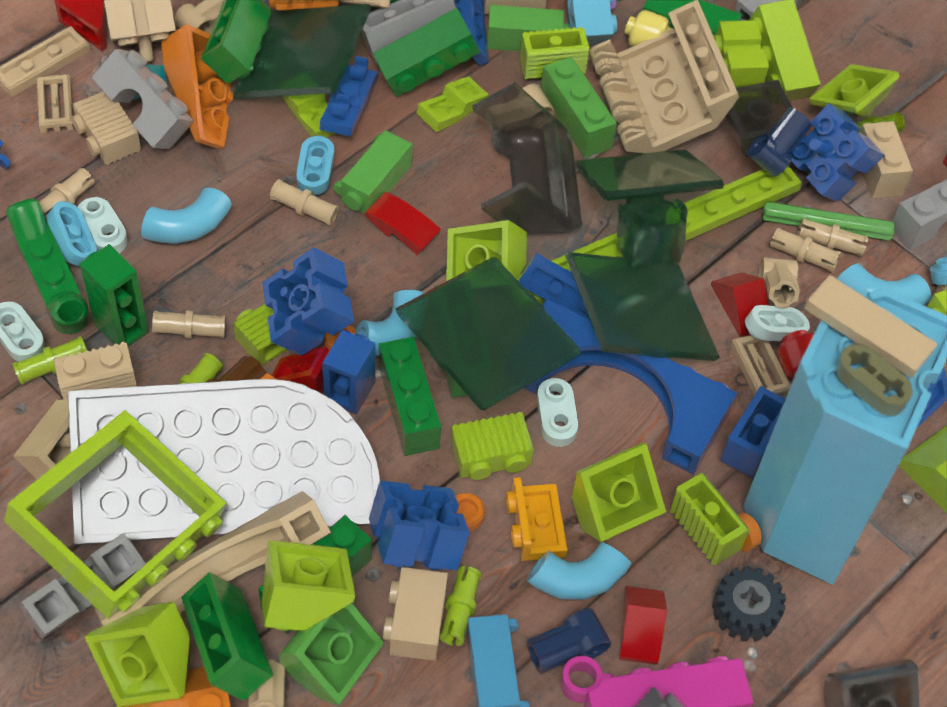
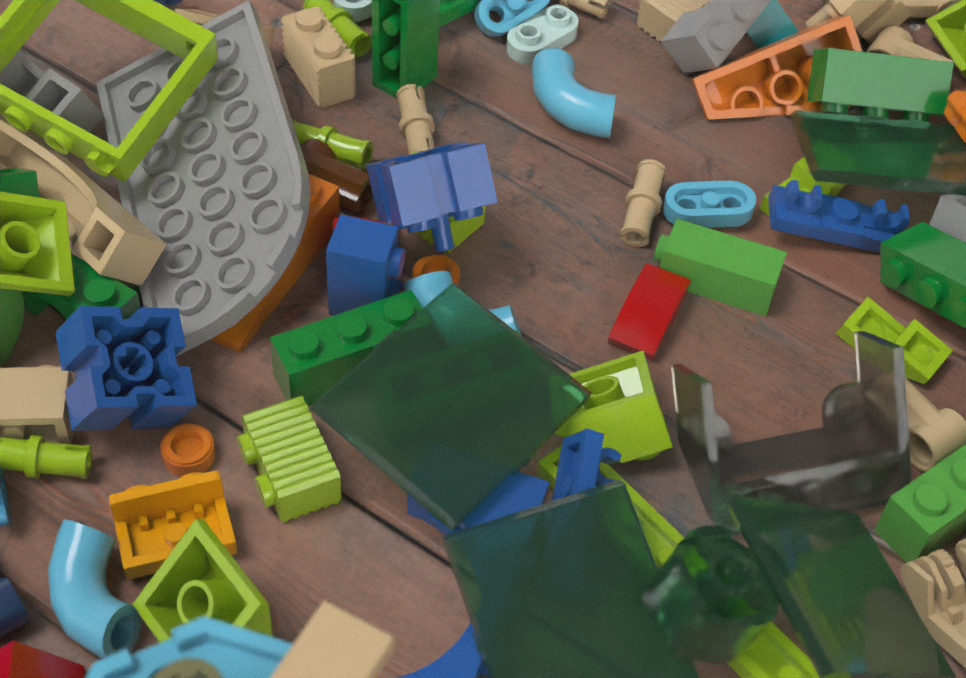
camera: 80 degrees right, 5 degrees down
(556, 409) = (376, 543): light aqua plate -> none

